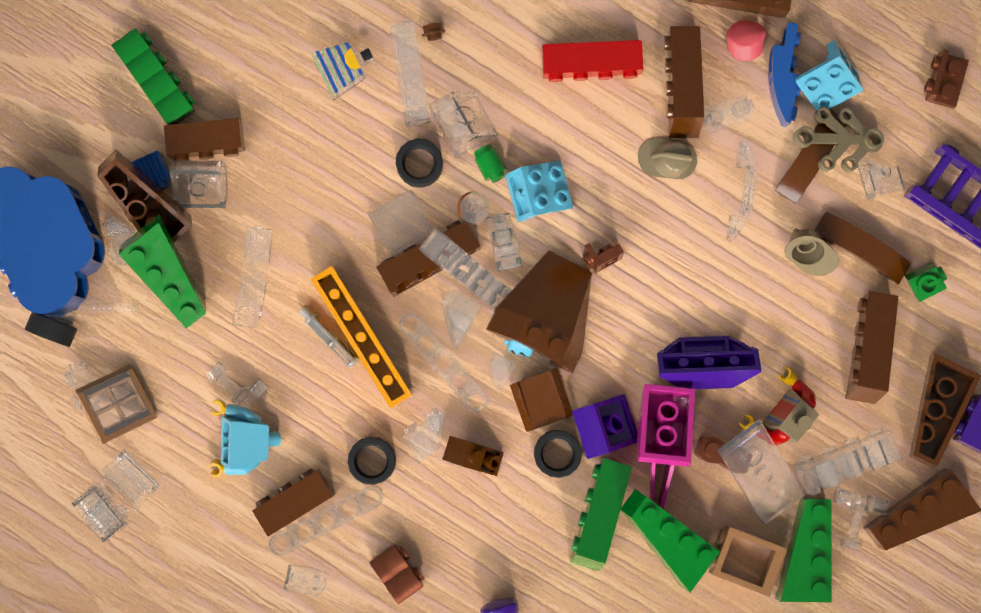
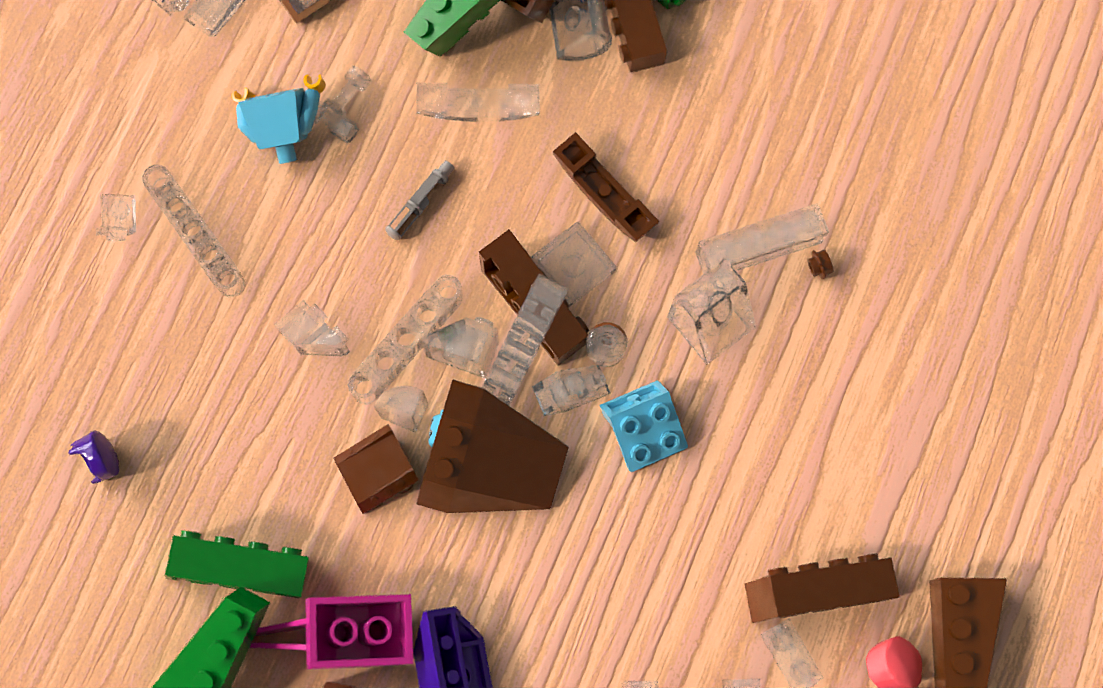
camera: 80 degrees right, 10 degrees down
(292, 501) = (212, 188): reddish brown brick -> none
(341, 67) = (752, 162): torso -> none
(345, 188) = (603, 189): none -> reddish brown slope
(353, 465) = (257, 256): black tyre -> none
(361, 337) = (422, 235): light orange brick -> none
(397, 573) = (135, 324): copper brick -> none
(413, 145) = (660, 250): black tyre -> none
(473, 456) = (293, 393): reddish brown slope -> none
(490, 163) = (667, 357): green brick -> none
(576, 456) = (291, 482): black tyre -> none
(592, 60) = (825, 465): red brick -> none
(605, 426) = (352, 556): dark purple slope -> none
(607, 256) = (569, 519): copper bracket -> none
(667, 158) = (717, 586): dark tan piece -> none

